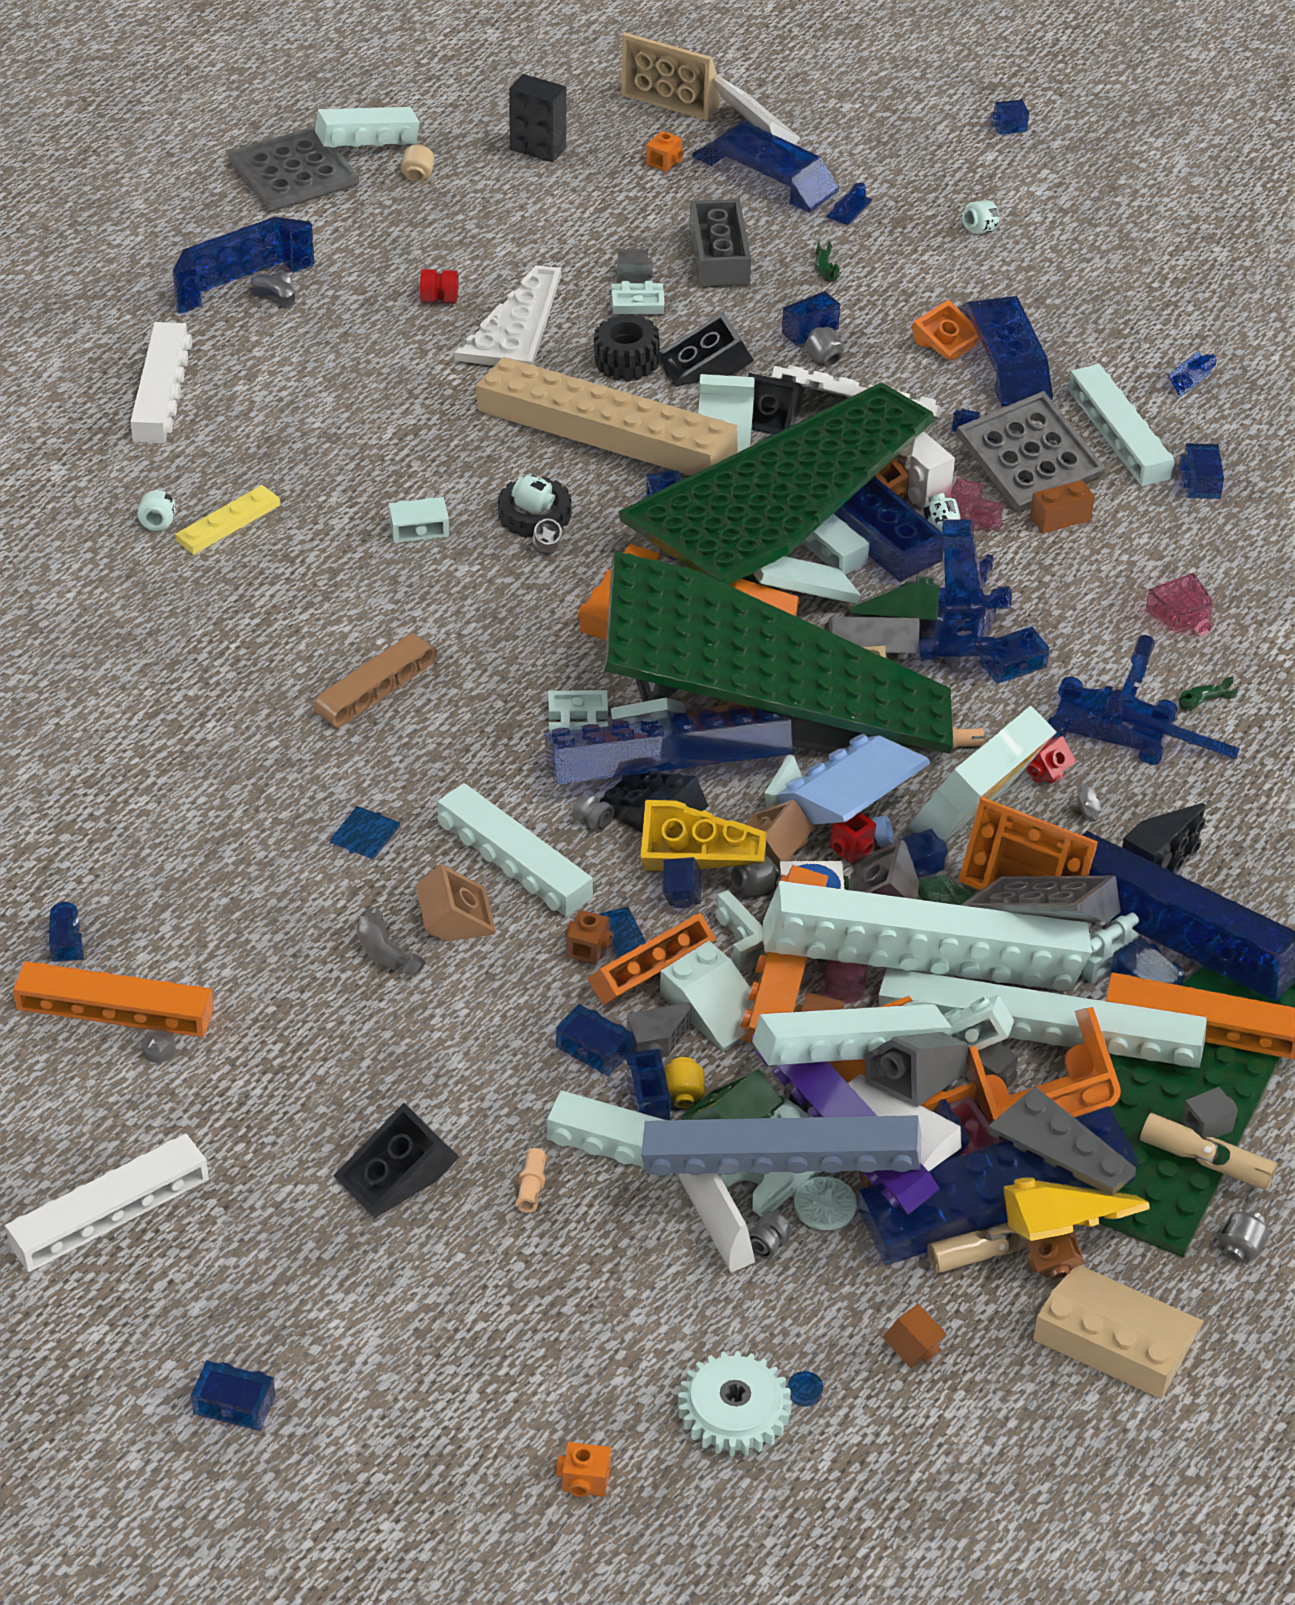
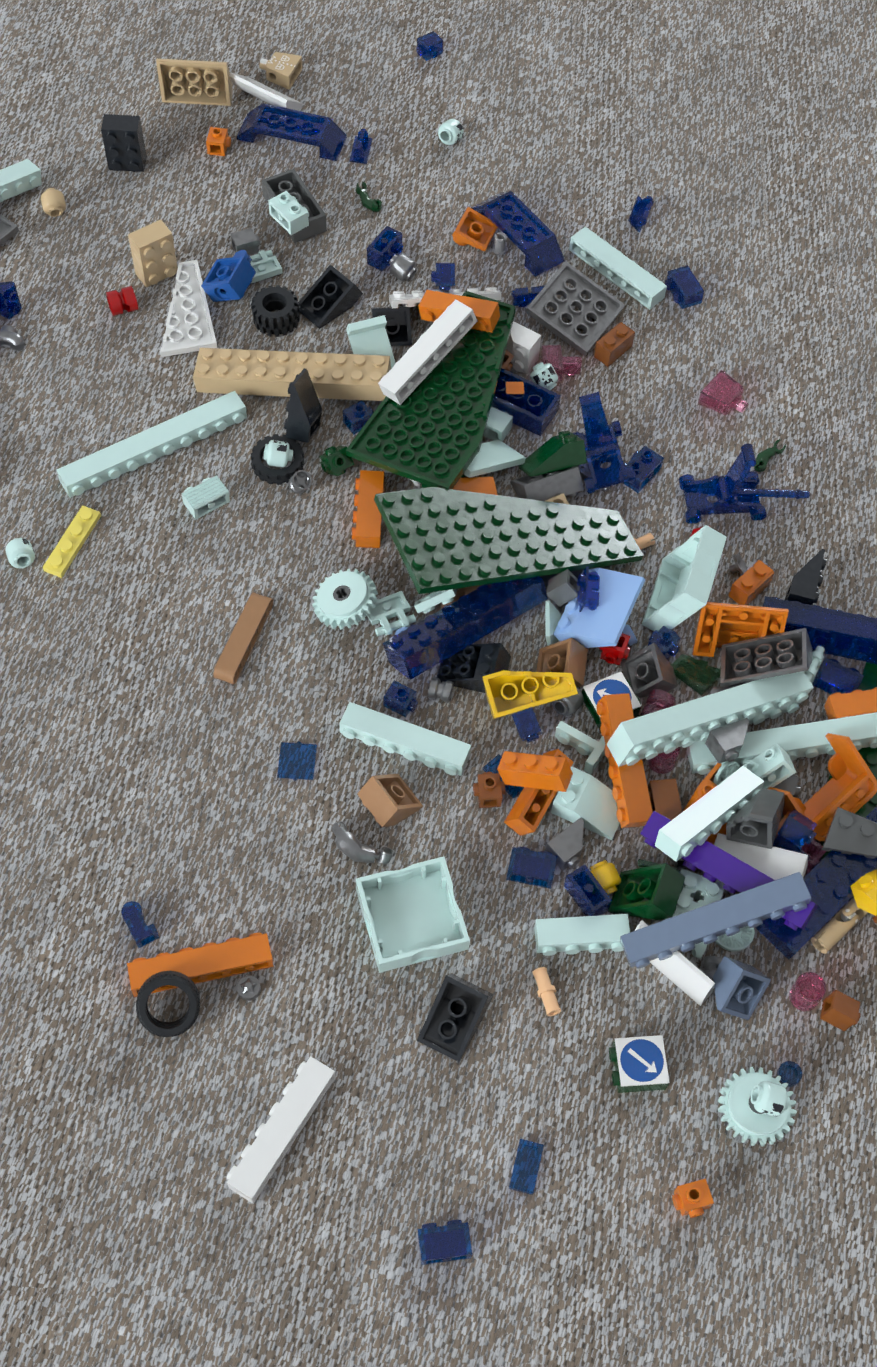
camera: 25 degrees left, 15 degrees up
(20, 999) = (174, 1028): none -> black tyre
(387, 445) = (151, 444): none -> light aqua brick
(390, 1359) = (526, 1166): none -> clear blue tile
(406, 1035) = (412, 914): none -> light aqua tile
(503, 241) = (153, 253): none -> tan brick
(527, 674) = (345, 599): none -> light aqua gear
(534, 805) = (400, 699): none -> clear blue brick
(587, 295) = (229, 277): none -> blue brick
(592, 452) = (303, 409): none -> black slope
(595, 530) = (335, 460): none -> dark green brick
(603, 1299) = (639, 1064): none -> piece
(650, 919) = (535, 771): none -> orange brick
(701, 240) = (288, 212): none -> light aqua brick
(748, 1385) = (770, 1098): none -> light aqua head
(781, 426) = (427, 352): none -> white brick
(785, 1258) = (738, 987): none -> sand blue slope
(797, 95) = (282, 68): none -> tan torso
(817, 743) = (562, 588): none -> dark grey brick
(848, 747) = (586, 597): none -> clear blue hinge
(854, 397) = (435, 303): none -> orange brick
(870, 364) = (443, 275): none -> clear blue brick
(881, 1299) = (807, 991): none -> clear pink wheel
(887, 509) = (514, 387): none -> orange sticker
(936, 972) = (727, 740): none -> flat silver slope
(967, 1097) = (798, 829): none -> clear blue brick
(971, 360) = (499, 247): none -> light grey pin
(1100, 818) = (751, 583): none -> orange brick

